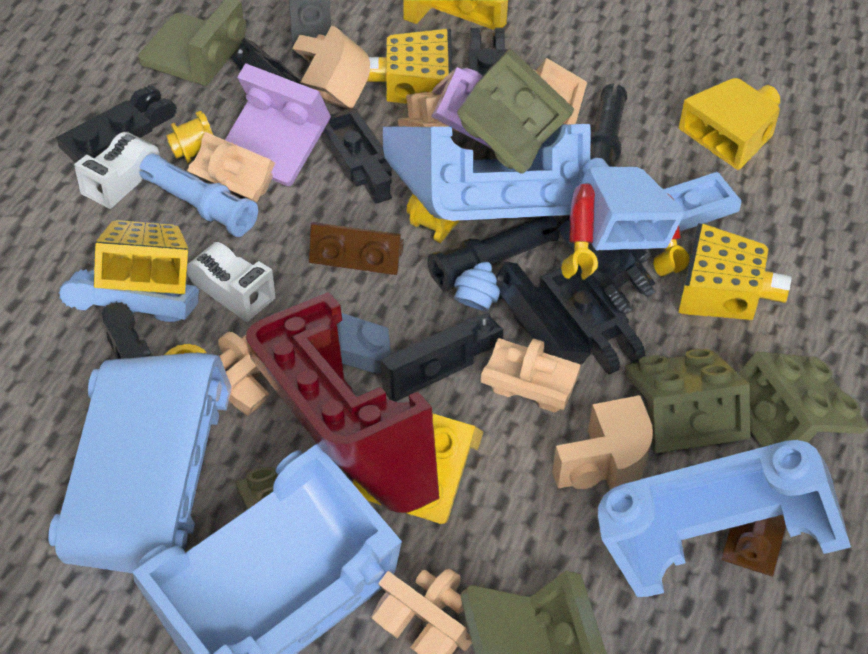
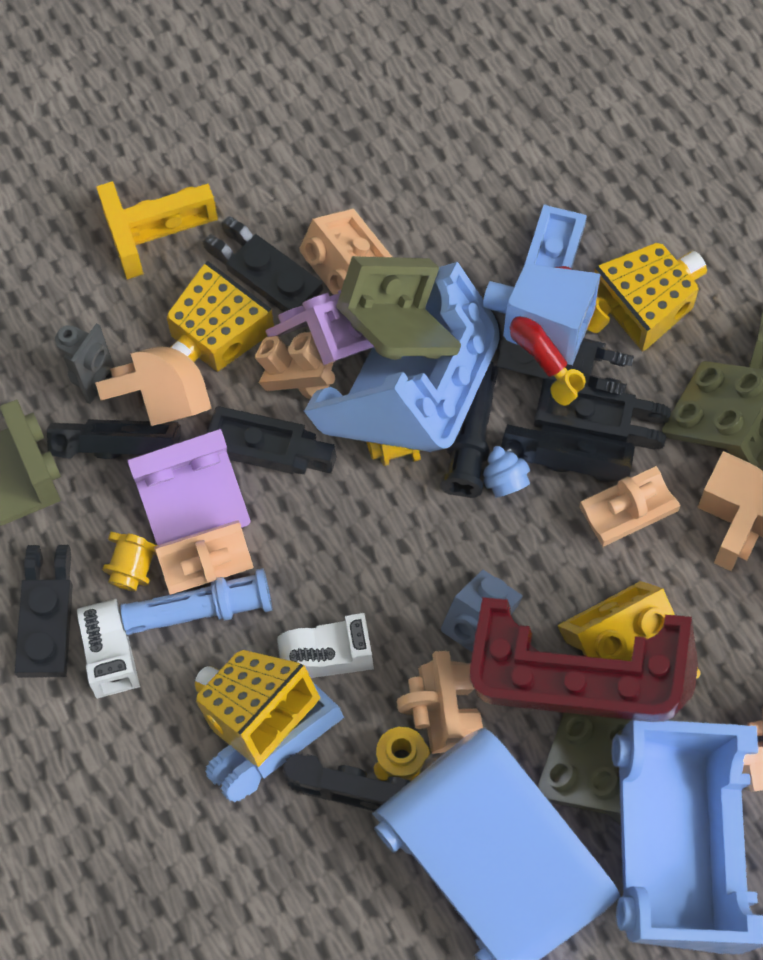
camera: 45 degrees left, 15 degrees up
(355, 248) = (389, 518): reddish brown hinge -> none
(437, 356) = (547, 548): black hinge -> none
(604, 139) = (413, 233): black pin -> none
(731, 119) = (499, 144): yellow torso -> none

